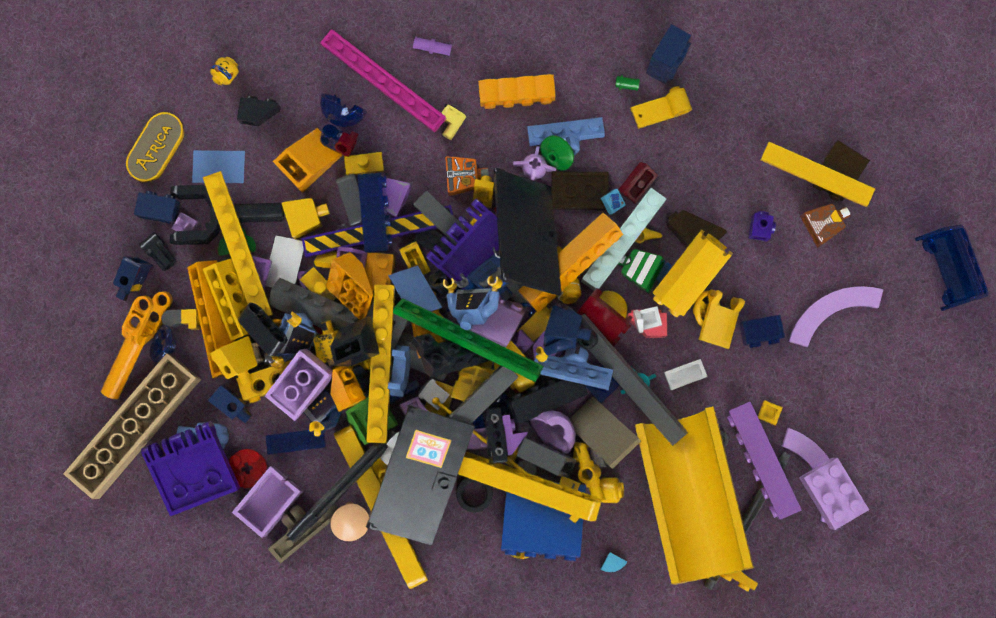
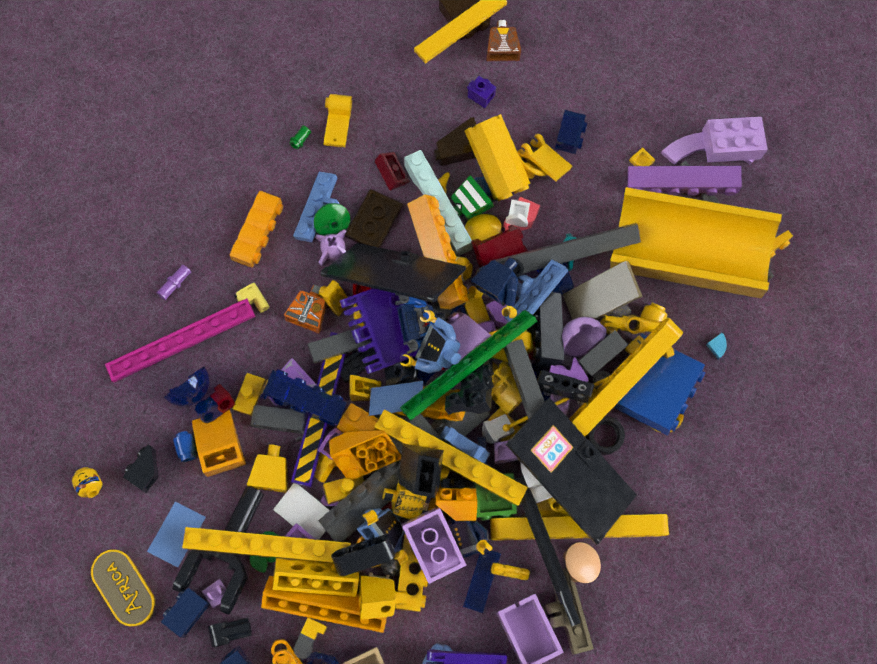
camera: 75 degrees left, 10 degrees down
(223, 397) = (410, 630): dark blue torso -> none
(253, 459) = (482, 628): red plate -> none
(292, 133) = (185, 446): none -> blue brick
(313, 462) = (510, 571): none -> yellow axle
(613, 201) = (398, 196): medium azure tile -> none
(619, 293) = (483, 226): none -> yellow dish
(669, 54) = (296, 87): dark blue brick -> none
(685, 374) = (578, 210): white tile -> none
(830, 304) = (572, 74): lavender tile -> none

